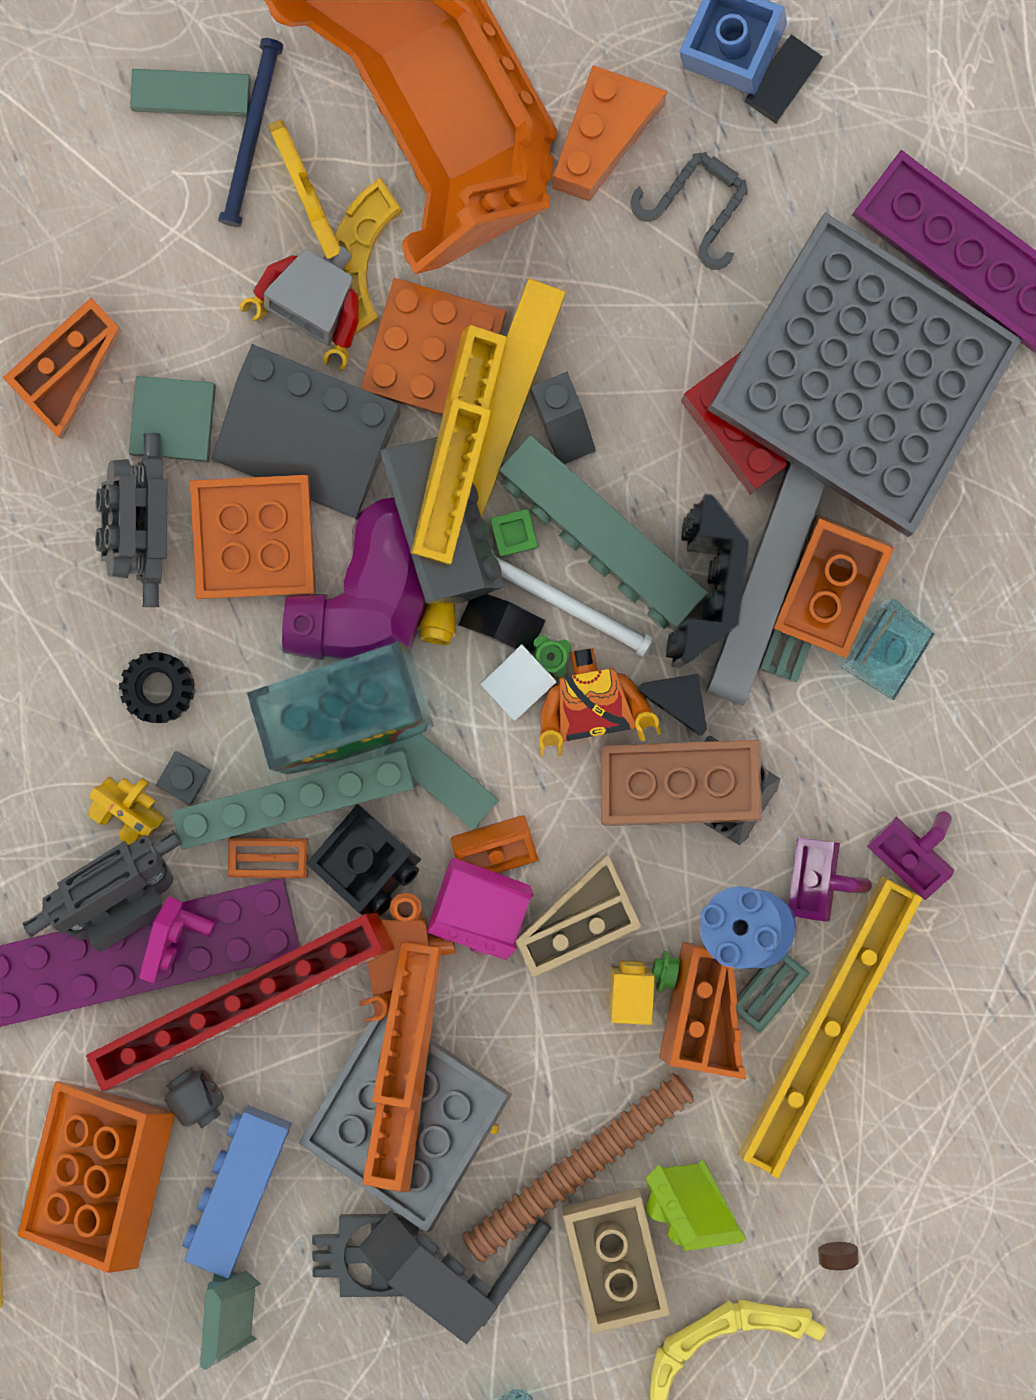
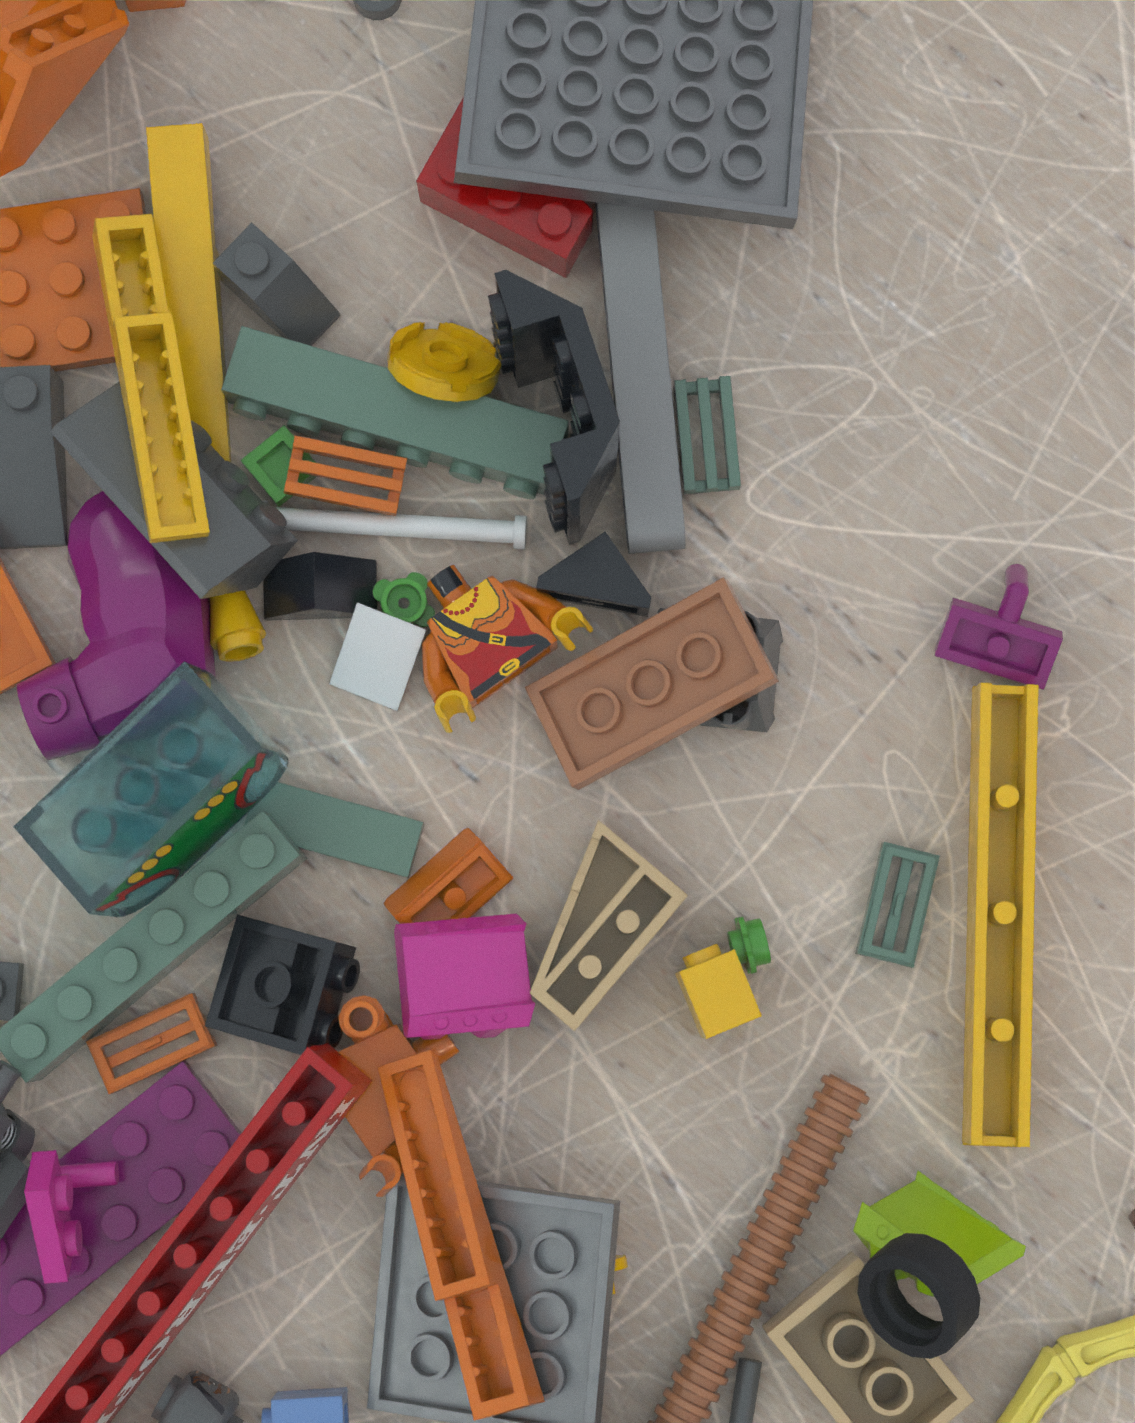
camera: 25 degrees left, 5 degrees down
(578, 580) = (350, 454): none -> orange tile
(647, 516) = (443, 362): none -> yellow tile
(647, 1247) = (941, 1272): none -> black tyre
(702, 1017) = (825, 975): orange wedge -> none
(769, 924) = (828, 829): medium blue piece -> none
(816, 879) = (890, 729): magenta plate -> none
(833, 586) = (727, 338): orange slope -> none
(889, 648) = (839, 387): clear light blue slope -> none

